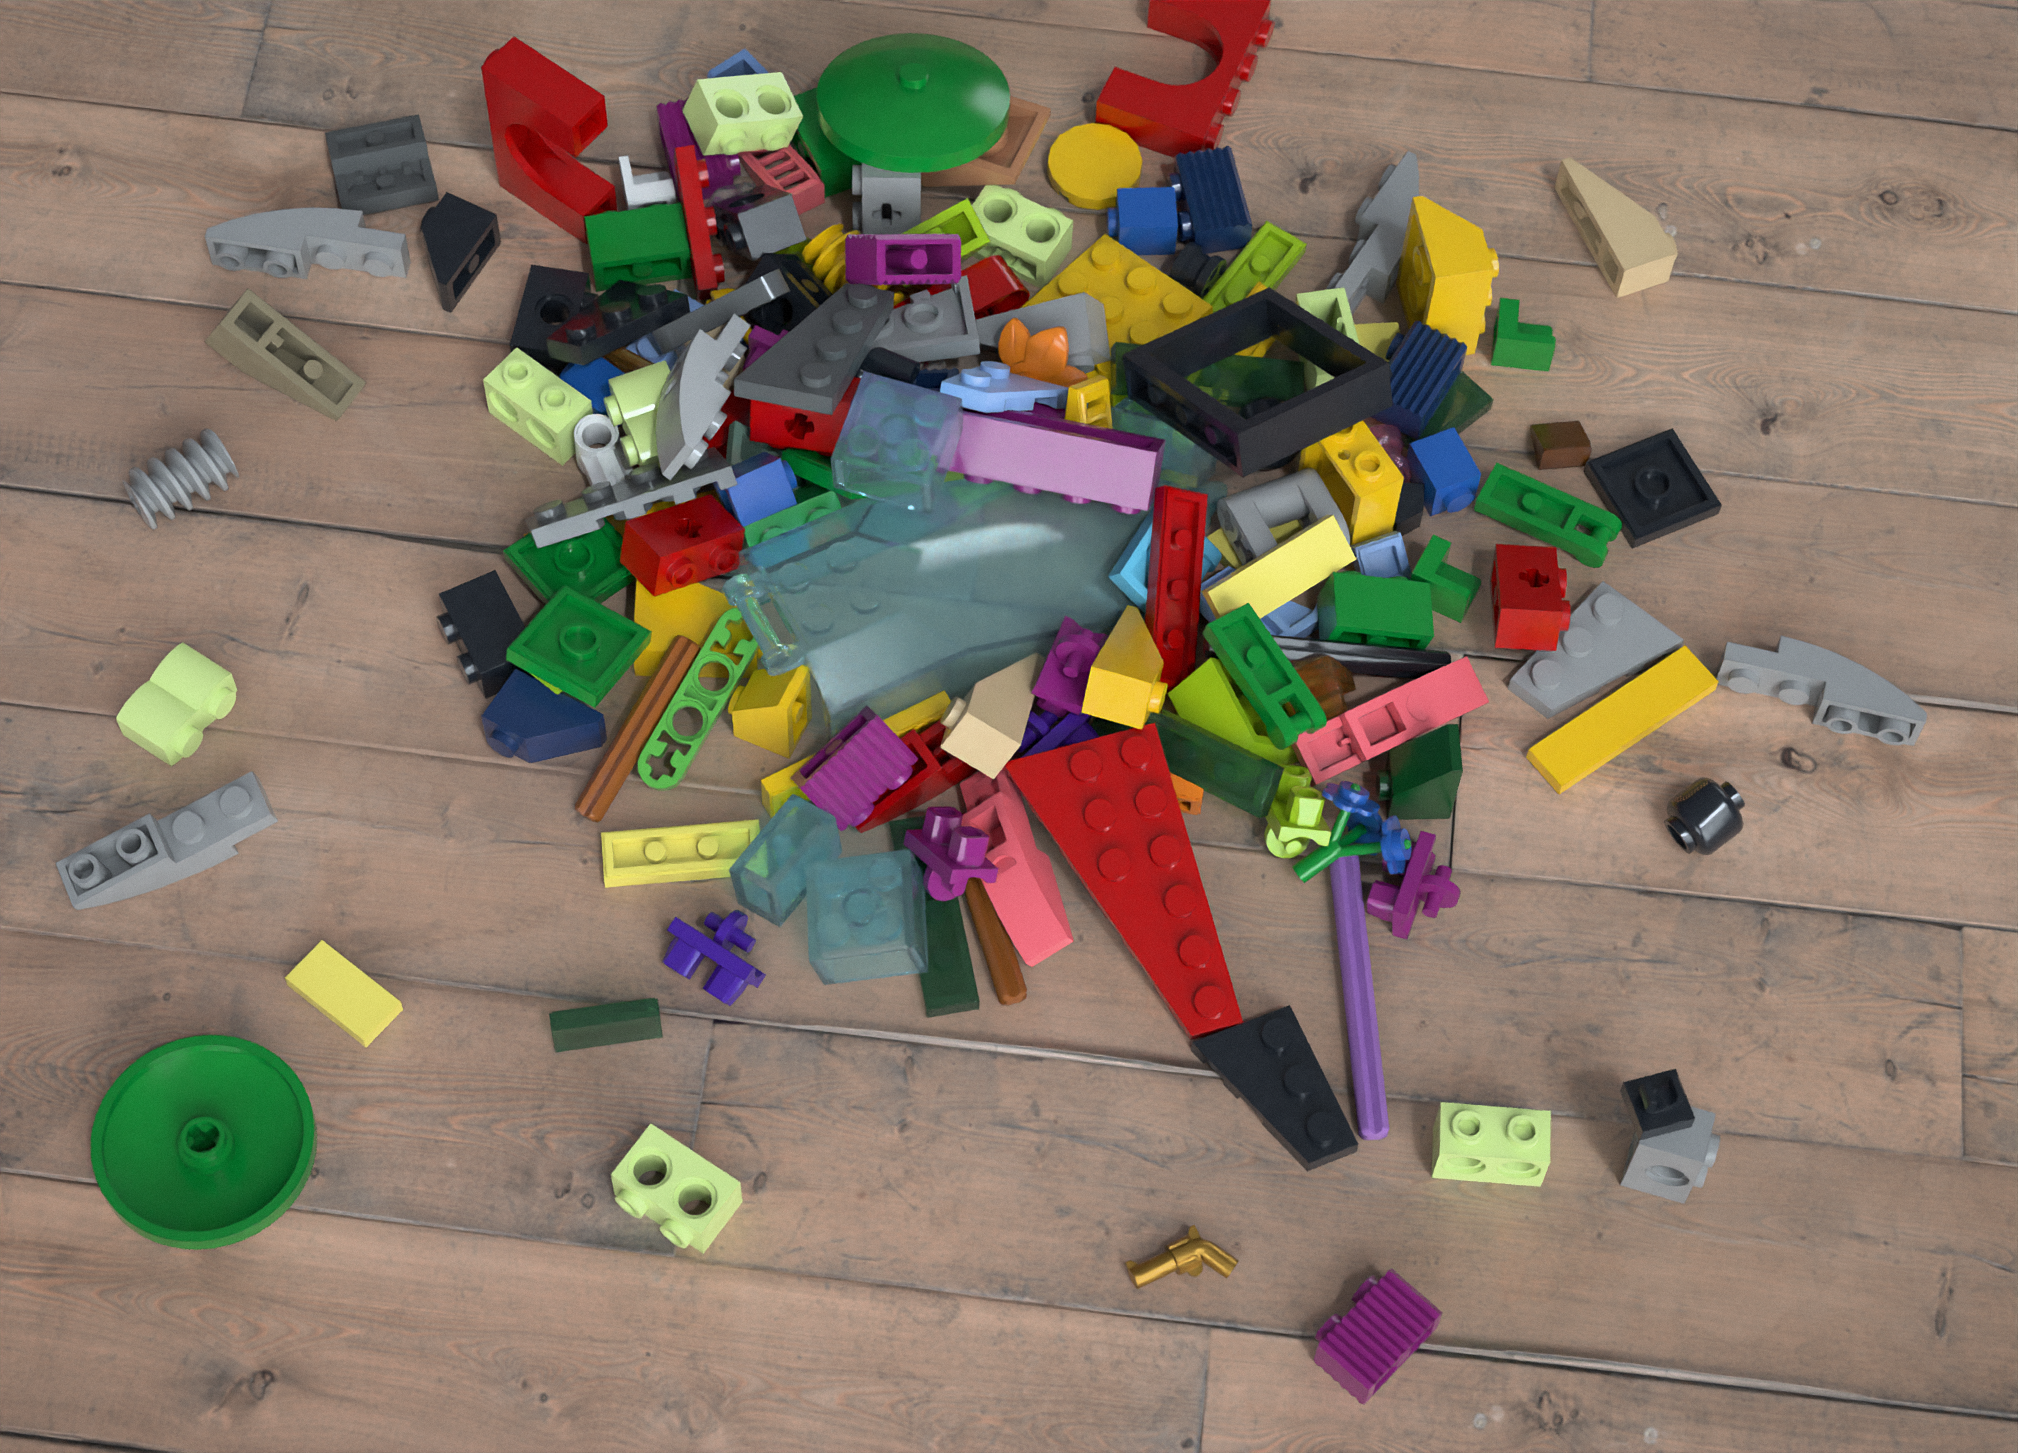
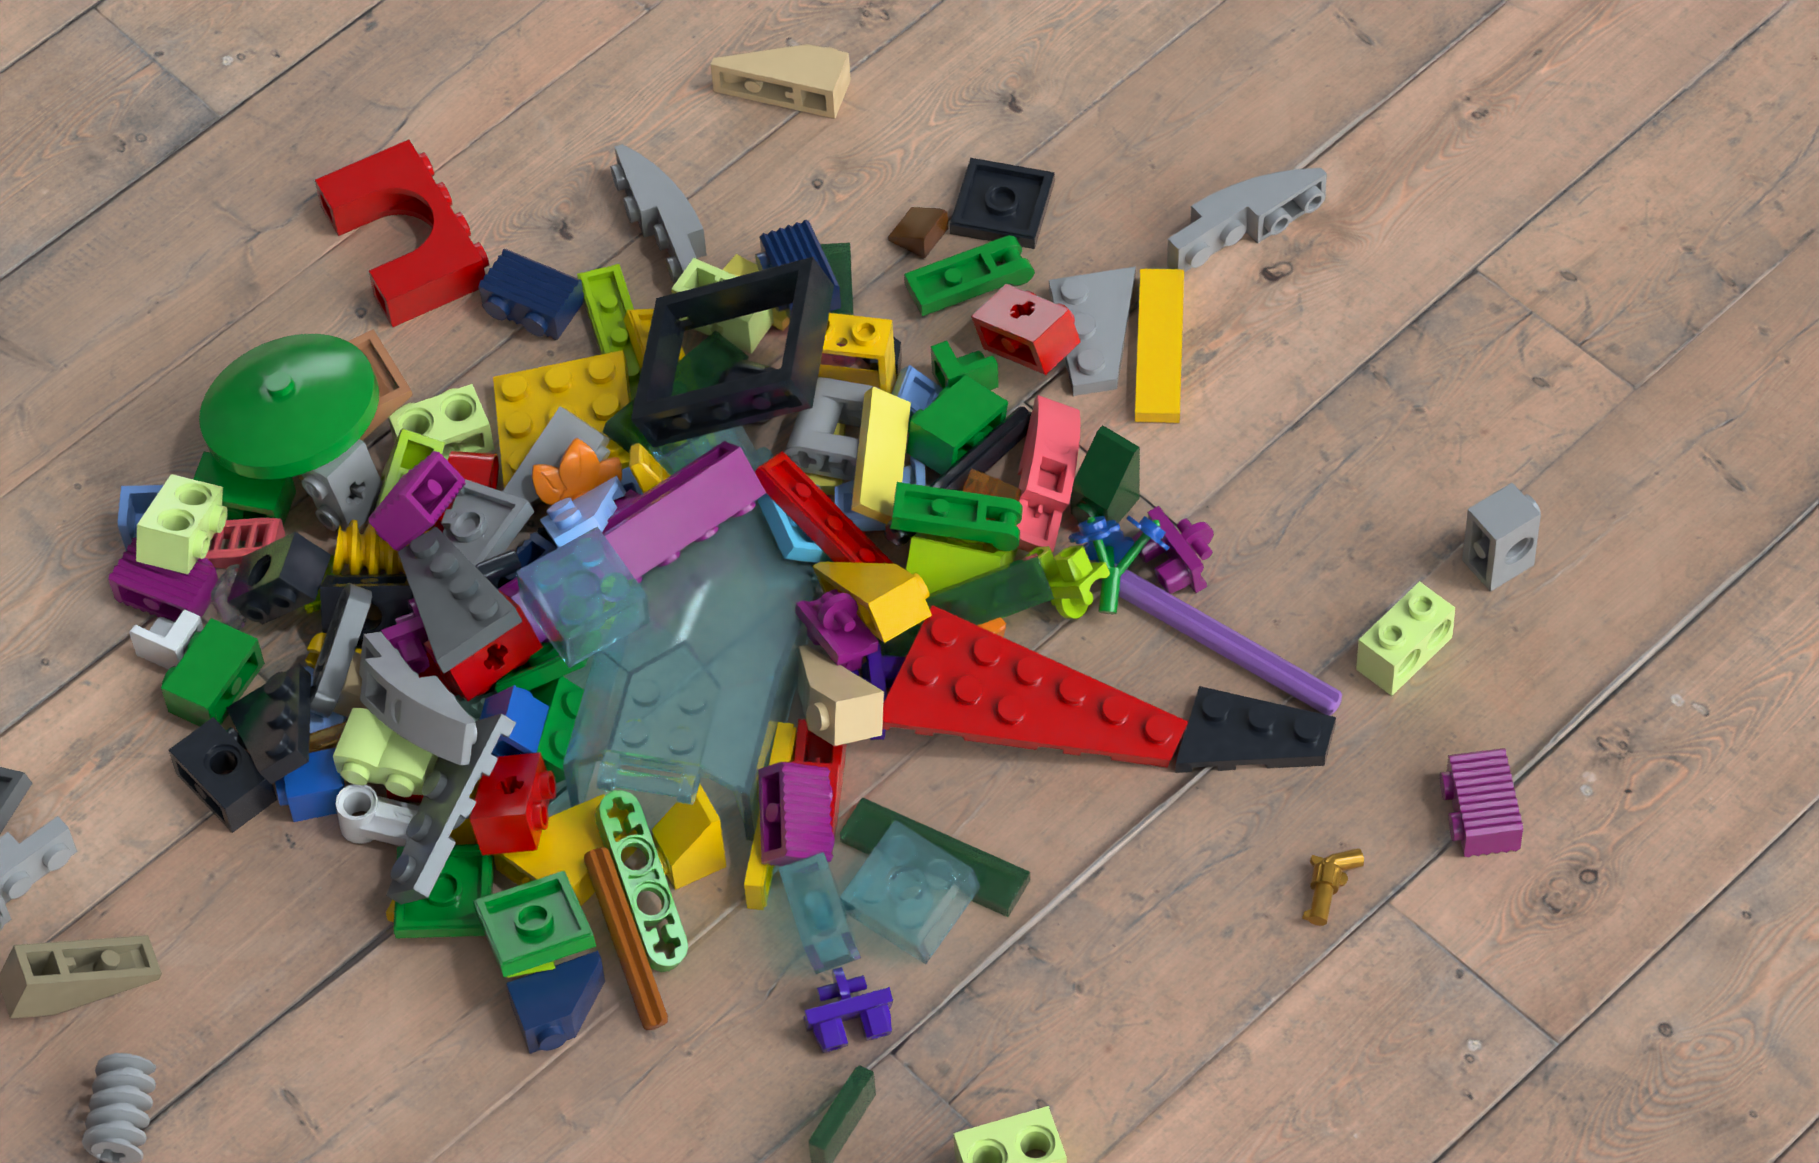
camera: 45 degrees left, 5 degrees down
(458, 245) = (91, 795): black slope -> none
(483, 626) = (450, 988): black brick -> none
(534, 121) = (74, 620): red arch -> none
(536, 404) = (289, 828): yellowish green brick -> none
(674, 852) = (742, 984): light yellow tile -> none
(699, 221) = (209, 599): red plate -> none
(950, 853) = (920, 808): magenta hips -> none
(995, 945) = (961, 821): dark orange axle -> none
(1025, 882) = (948, 775): coral slope -> none
(1092, 163) = (428, 345): yellow tile -> none
(1144, 220) = (507, 343): blue brick -> none
(1197, 270) = (580, 340): black wheel -> none
(1445, 272) = (742, 191): yellow slope -> none
(1445, 470) = (885, 301): blue brick -> none
(1520, 343) = (818, 197): green panel -> none
(1657, 1104) = (1480, 506): black tile -> none
(1705, 816) = (1277, 348): black head -> none

